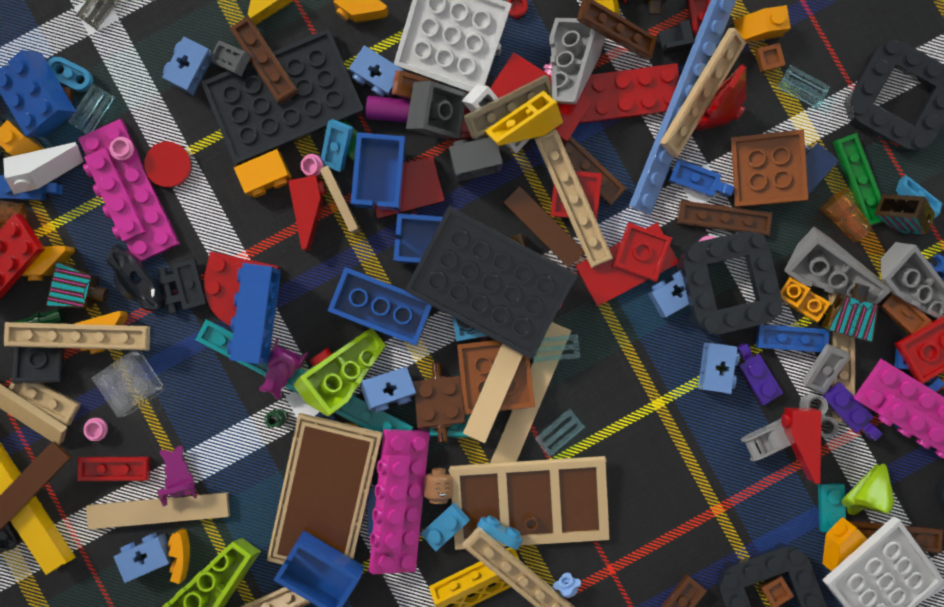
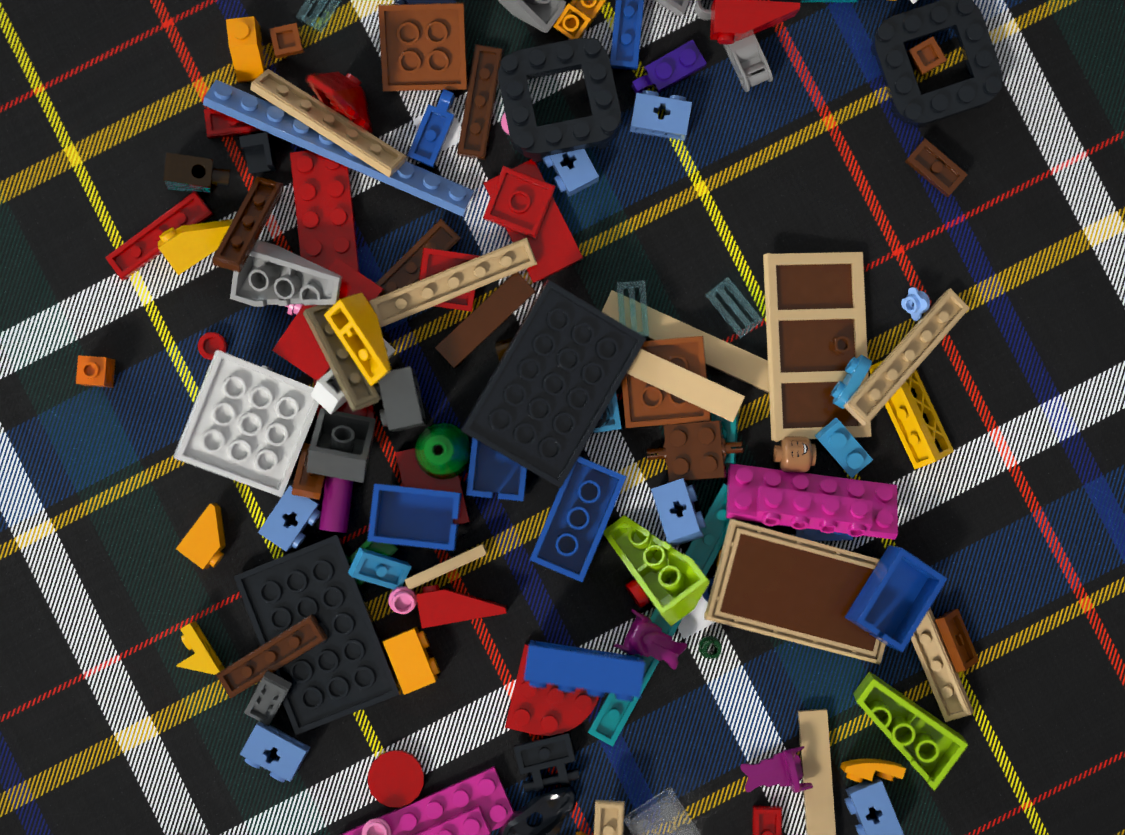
camera: 85 degrees left, 0 degrees up
(437, 201) = (455, 455): none -> green cone

